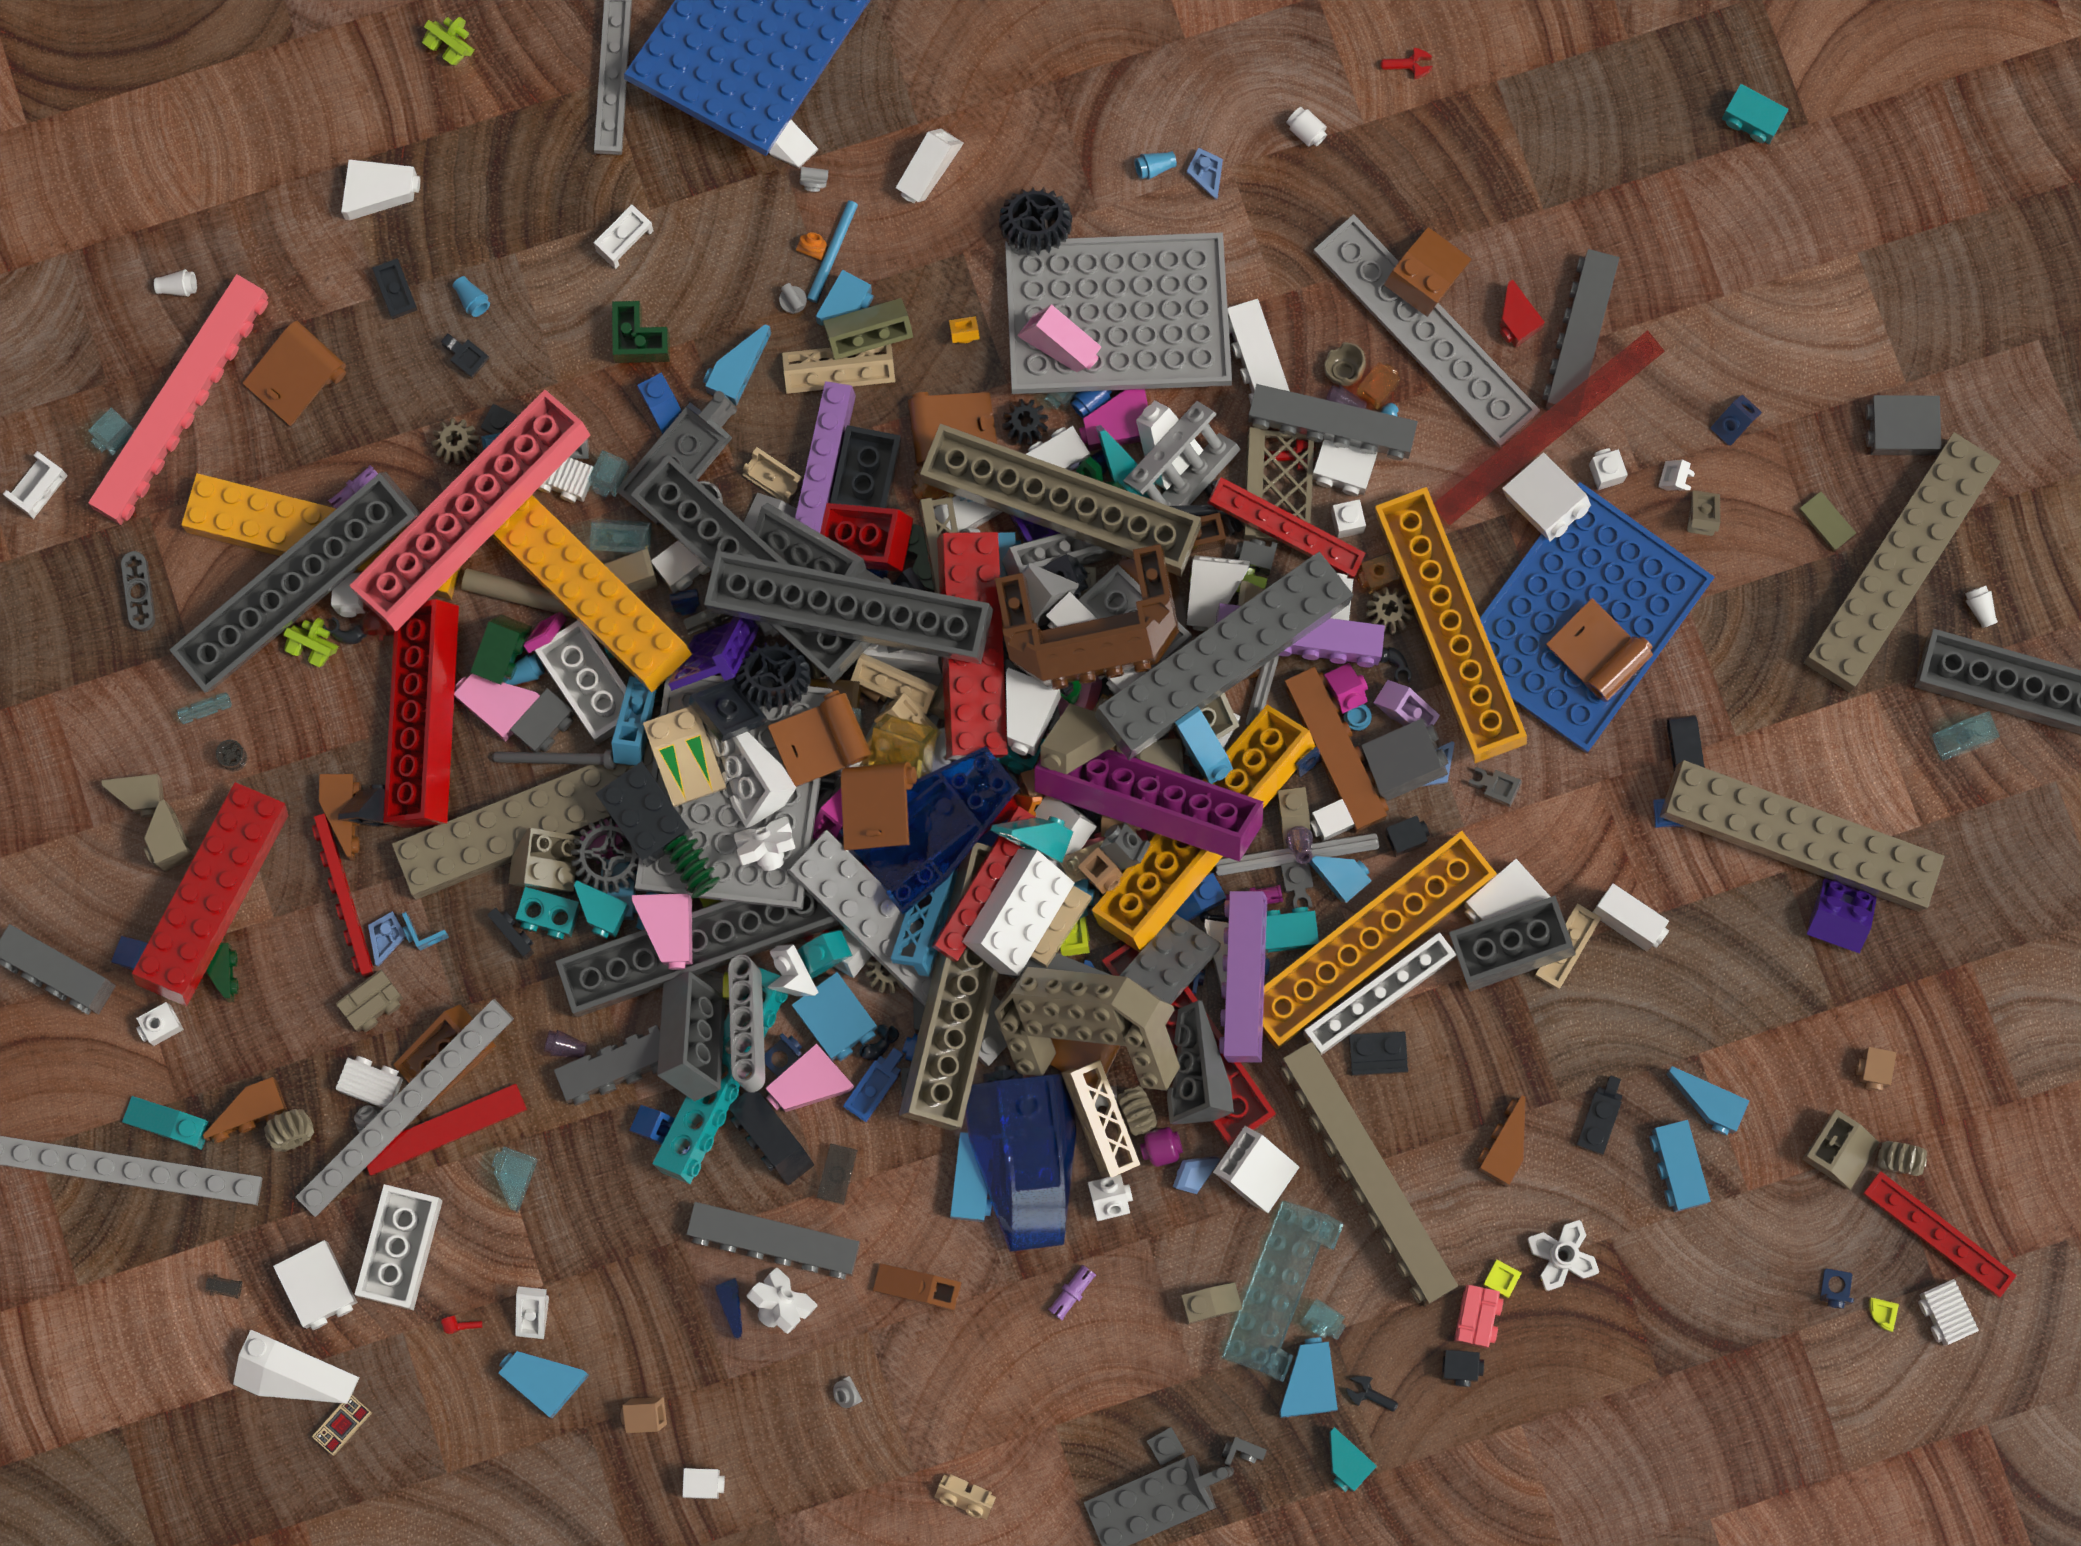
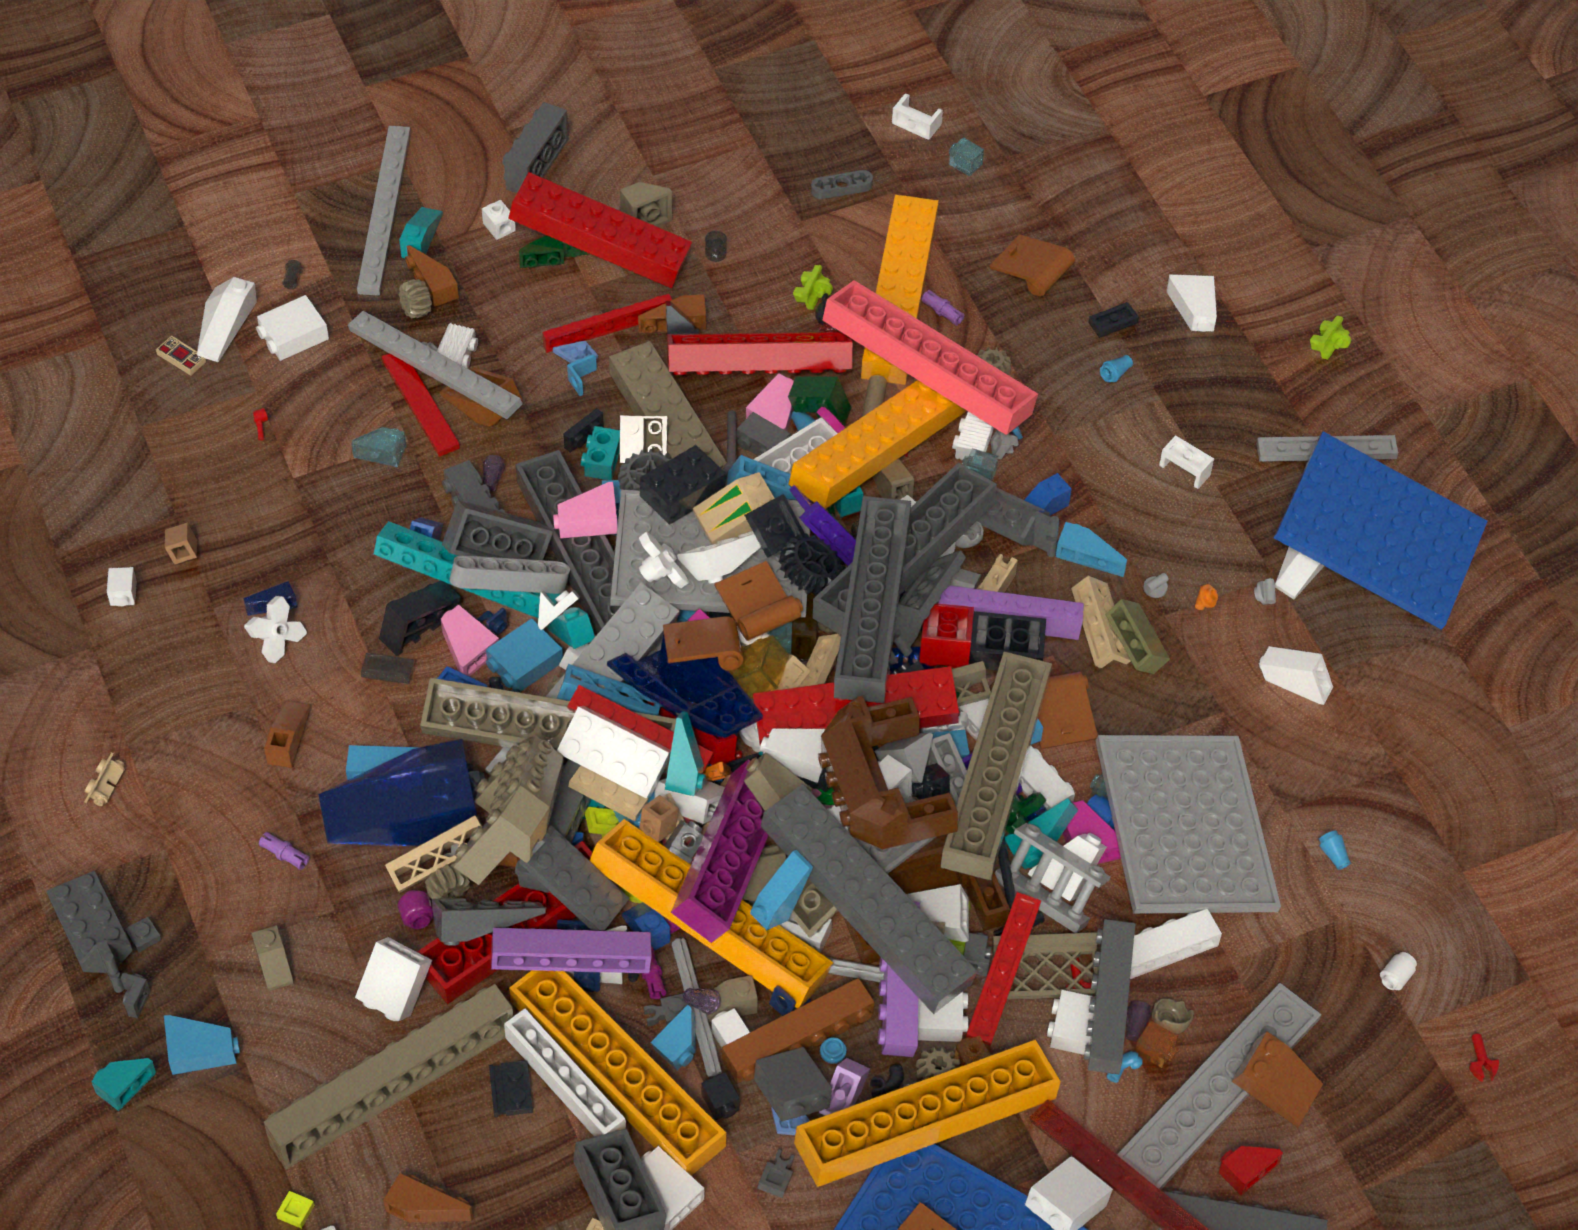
camera: 85 degrees right, 25 degrees down
(137, 792) = (682, 192): dark tan slope -> none
(178, 283) = (1092, 188): white cone -> none
(178, 400) = (999, 194): coral brick -> none
(204, 708) = (753, 230): clear light blue axle -> none
(295, 582) = (856, 256): dark grey brick -> none
(370, 1001) = (522, 345): dark tan brick -> none
(398, 1247) = (321, 373): white brick -> none
(466, 356) = (1065, 369): black plate -> none
(531, 1312) = (270, 465): white slope -> none
(542, 1380) = (211, 476): dark azure slope -> none
(601, 910) = (602, 471): teal slope -> none
(620, 535) = (925, 470): clear light blue brick -> none
(632, 341) = (1101, 470): dark green brick -> none
(691, 866) = (640, 514): dark green piece -> none
(773, 1239) = (329, 626): dark grey brick -> none
(832, 251) = (1204, 613): dark azure bar -> none
(846, 296) = (1165, 619): dark azure slope -> none
(846, 1393) = (197, 689): light grey plate -> none
(964, 330) = (1150, 710): light orange plate -> none
(1014, 424) = (1074, 762): black gear -> none
(1035, 220) = (1260, 753): black gear -> none
(1060, 339) = (1149, 764): bright pink slope -> none
(1110, 1197) = (368, 868): white brick -> none
(1194, 1173) = (392, 930): medium blue piece -> none
(1206, 171) = (1337, 893): medium blue piece -> none
(1278, 1288) = (278, 1007): clear light blue bracket -> none
(1291, 930) = (621, 1000): teal brick -> none
(1324, 1320) = (256, 1052): clear light blue brick -> none
(1347, 687) = (857, 1033): dark pink brick -> none
(1348, 519) = (1022, 1026): white brick -> none
(1370, 1394) = (186, 1100): black bar -> none
(1462, 1367) = (209, 1173): black brick -> none
(1477, 1316) = (257, 1185): coral brick -> none

